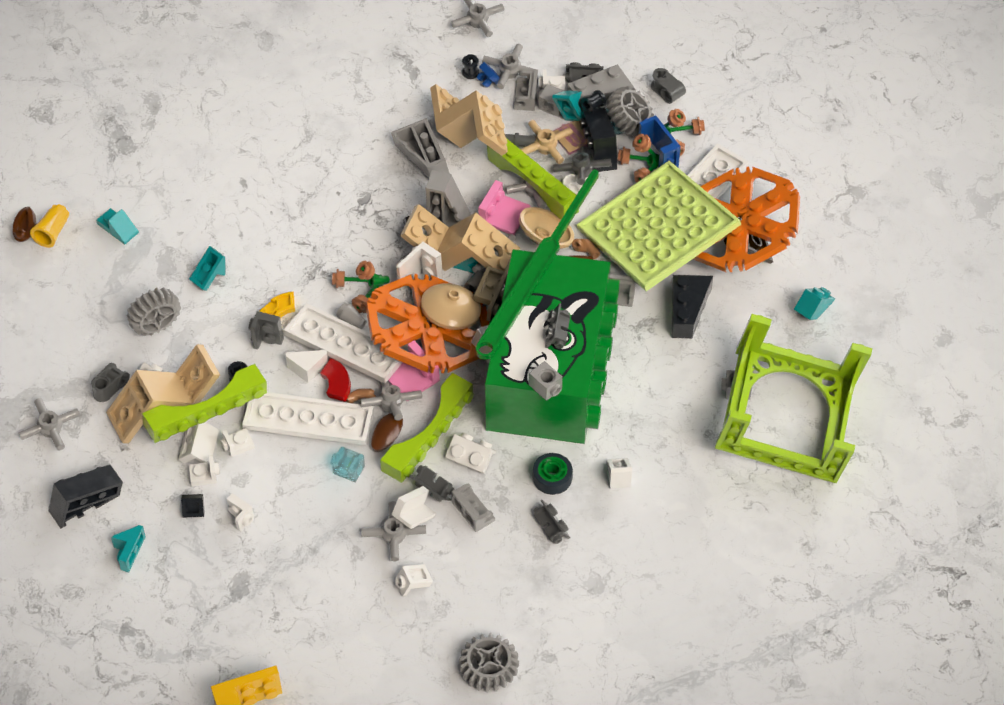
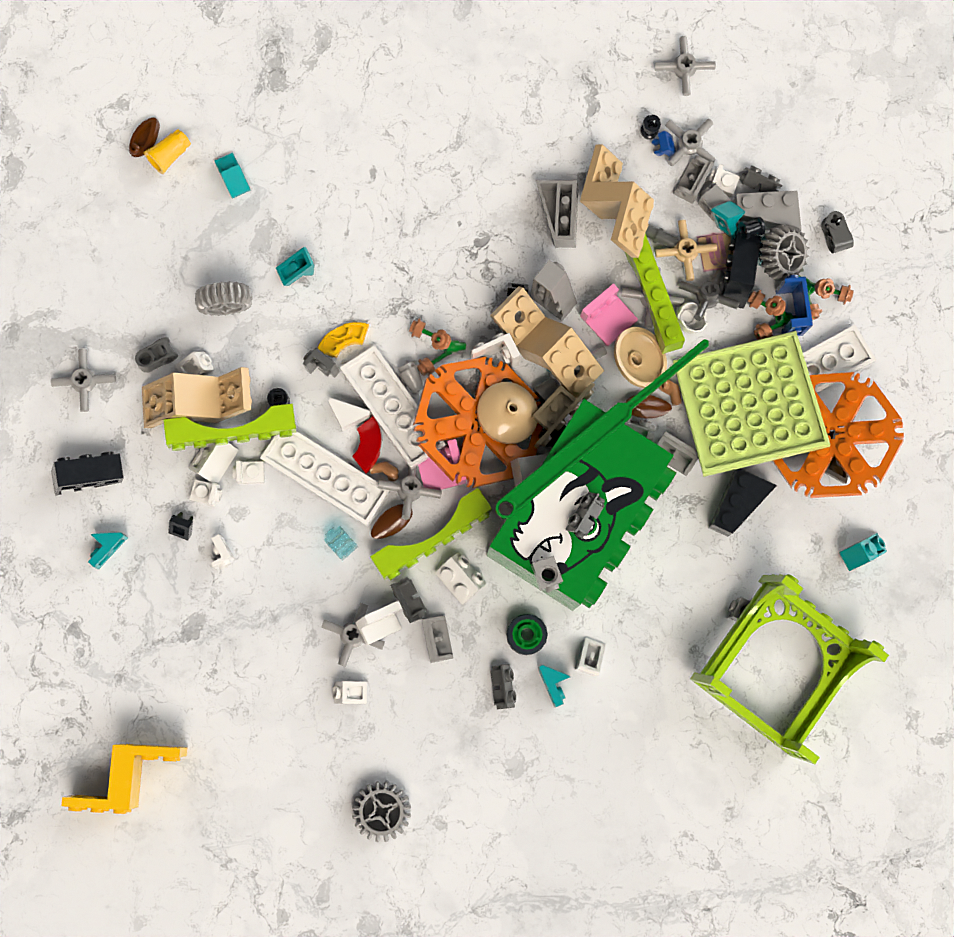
camera: 15 degrees right, 25 degrees up
(594, 500) = (550, 678): none -> teal slope

